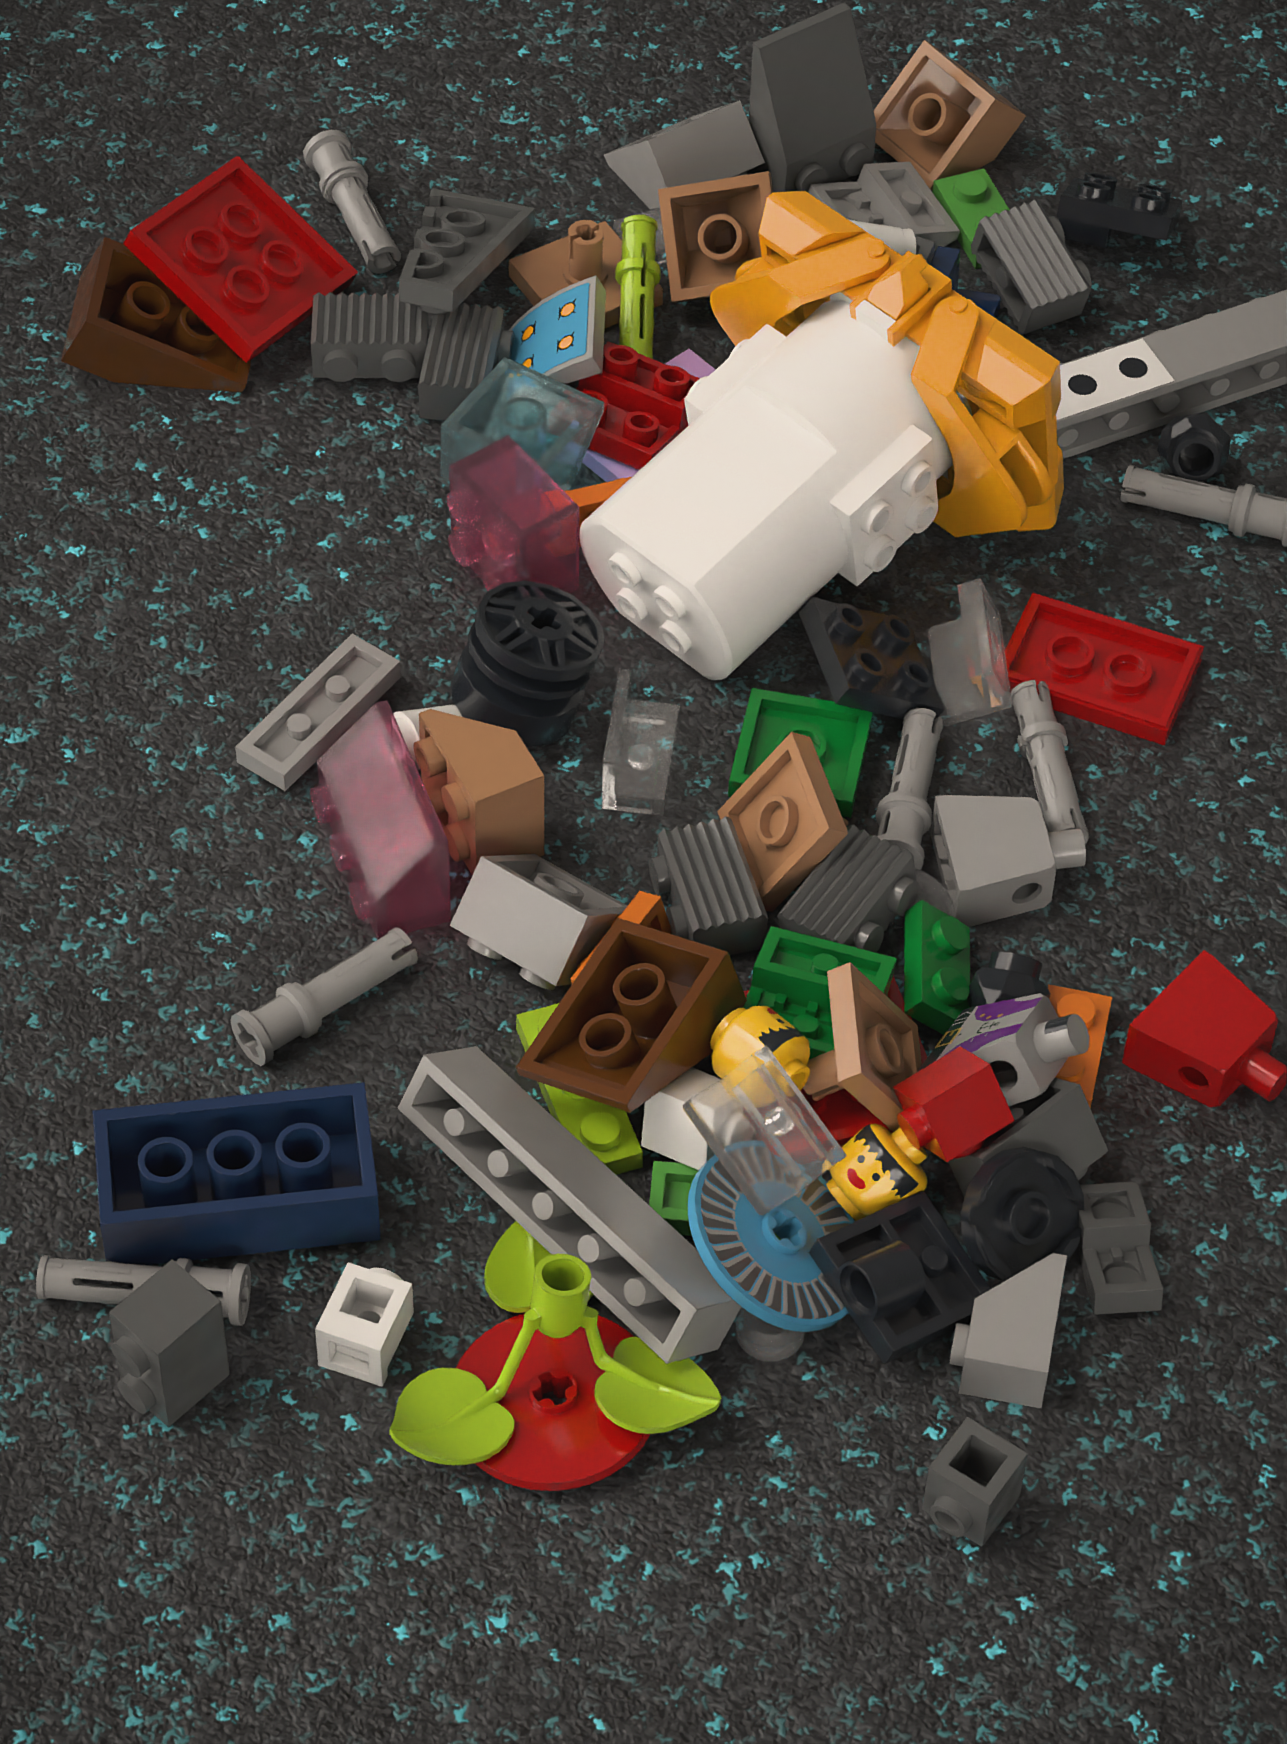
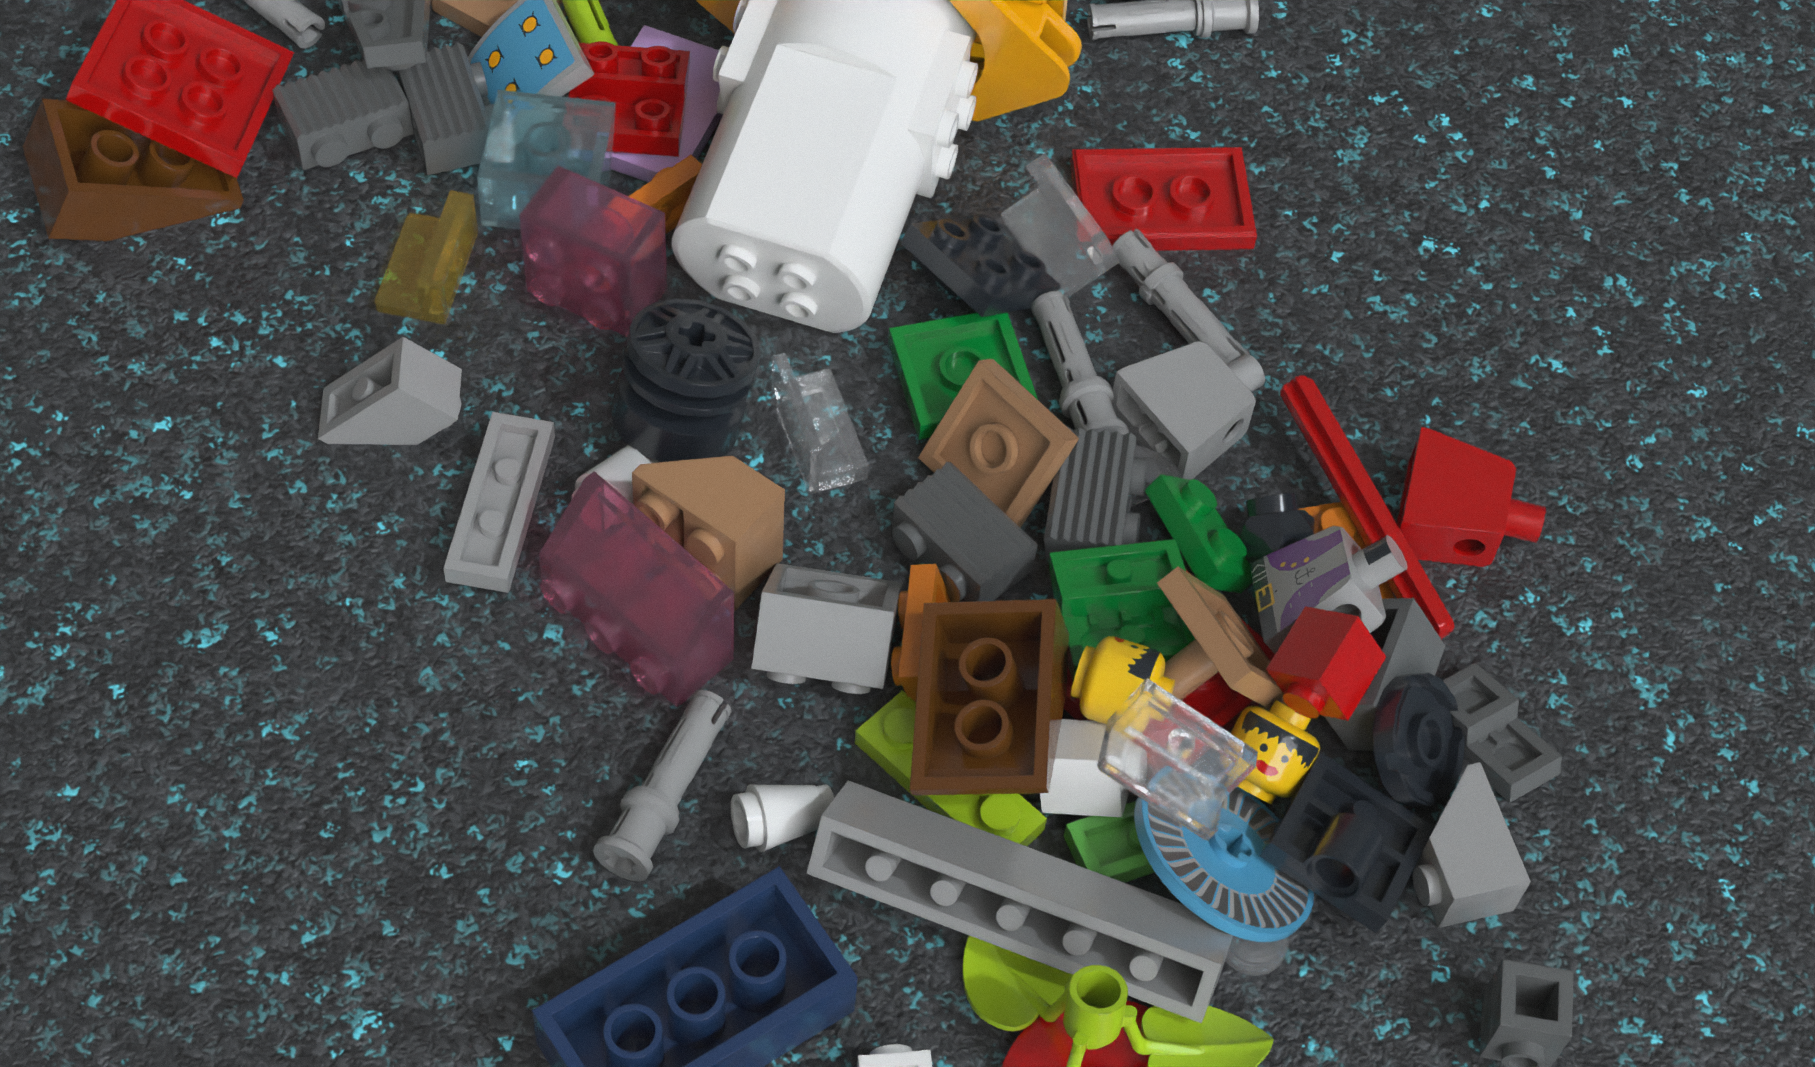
camera: 30 degrees left, 5 degrees up
(275, 593) = (392, 398): none -> light grey slope
(378, 491) = (429, 262): none -> clear yellow panel
(397, 1050) = (777, 813): none -> white cone
(1107, 1001) = (1360, 494): none -> red axle

